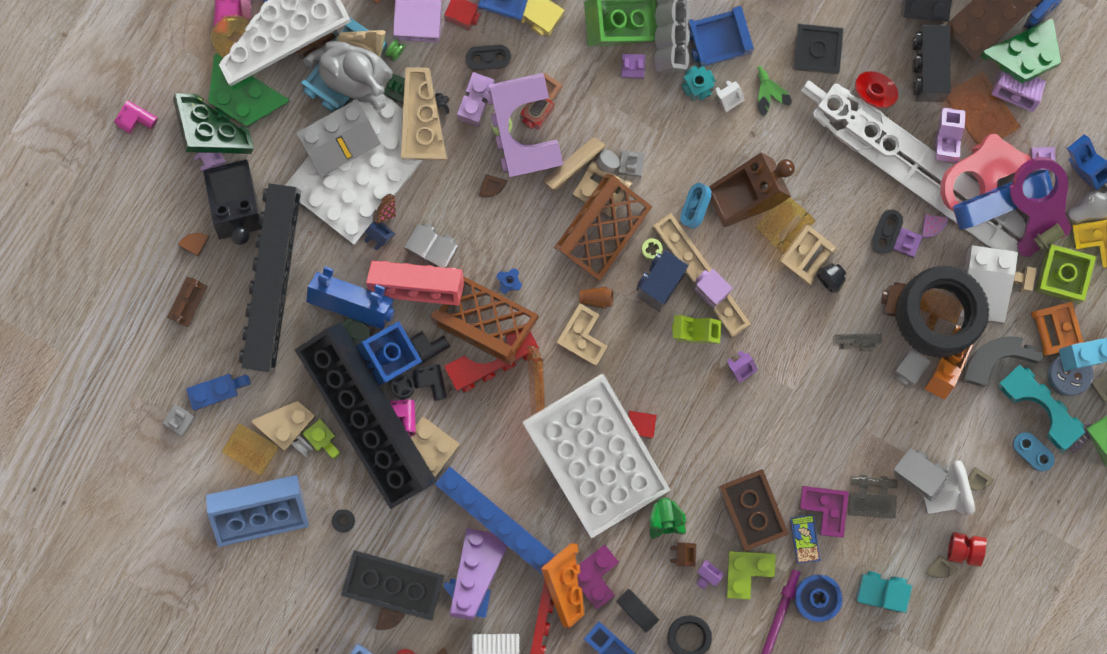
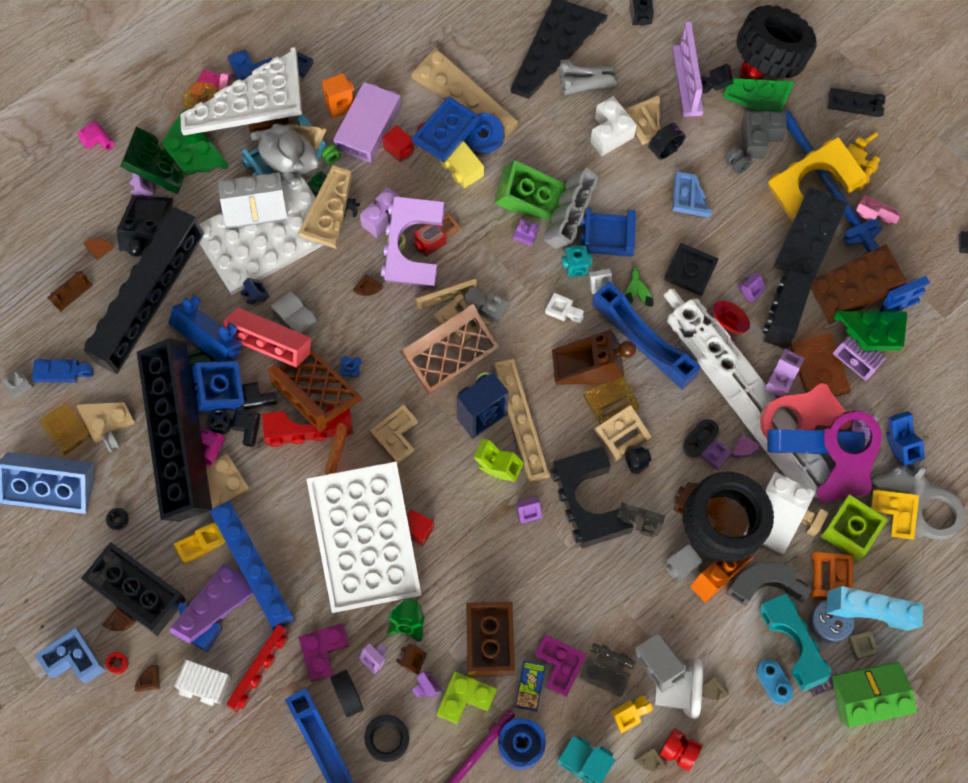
camera: 20 degrees right, 15 degrees down
(320, 437) = (130, 440): lime plate -> none
(385, 210) = (268, 272): reddish brown tile -> none
(434, 516) = (199, 544): none -> yellow slope
(488, 56) = (407, 184): black plate -> none
(562, 583) = (287, 645): orange wing -> none
(597, 297) = (423, 406): dark orange cone -> none
(648, 567) = (373, 657): none -> lavender tile
(695, 205) = (537, 359): dark azure plate -> none
(699, 140) = (561, 307): none -> white plate
(712, 288) = (525, 427): lavender piece -> none
(770, 318) = (588, 527): none -> black arch
(817, 154) = (668, 359): none -> blue arch
(888, 47) = (752, 287): none -> medium lavender tile
(907, 533) = (628, 714): none -> yellow plate
(1049, 237) = (848, 488): olive pin -> none

